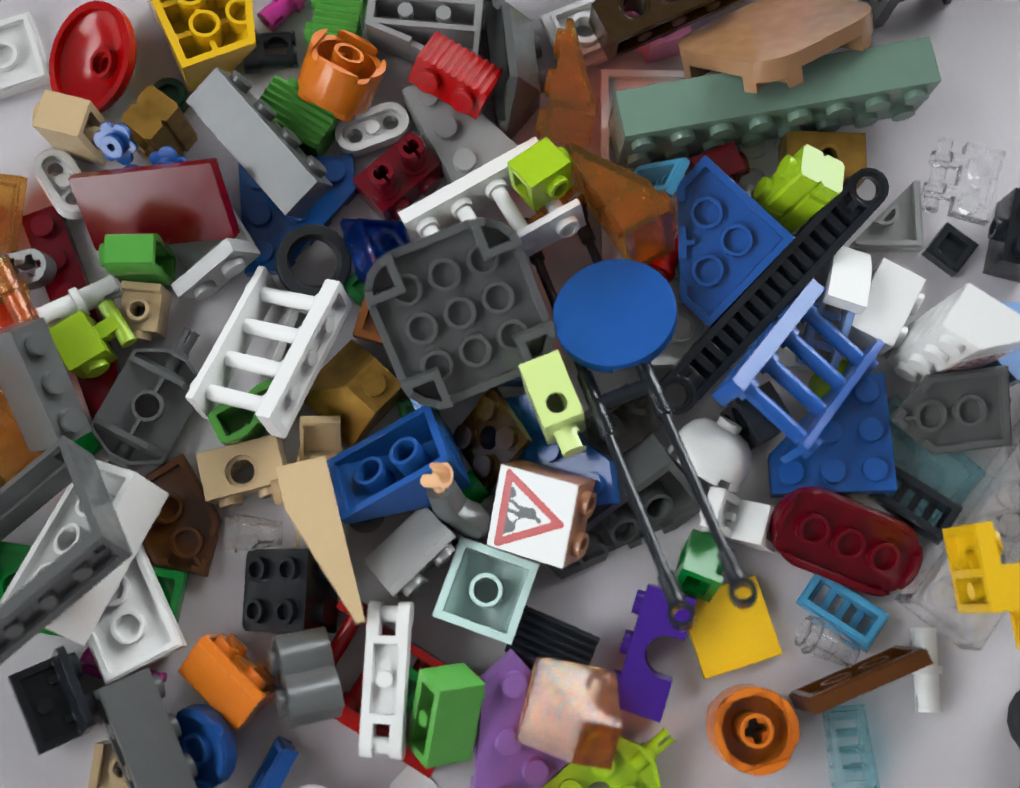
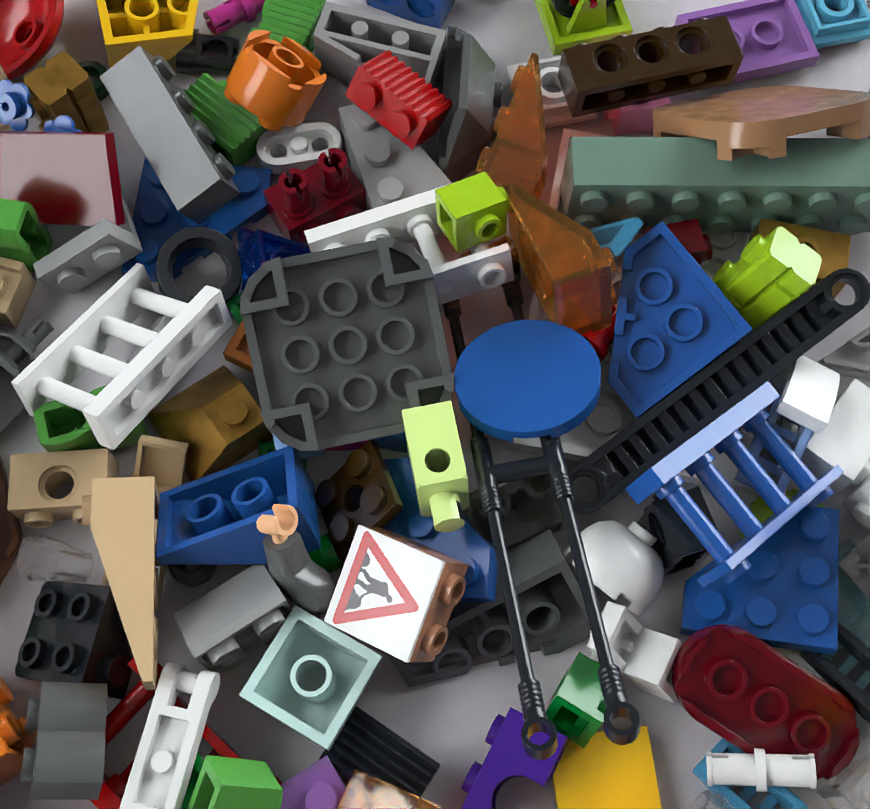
camera: 10 degrees right, 10 degrees down
(850, 594) = (761, 770): none -> white pin

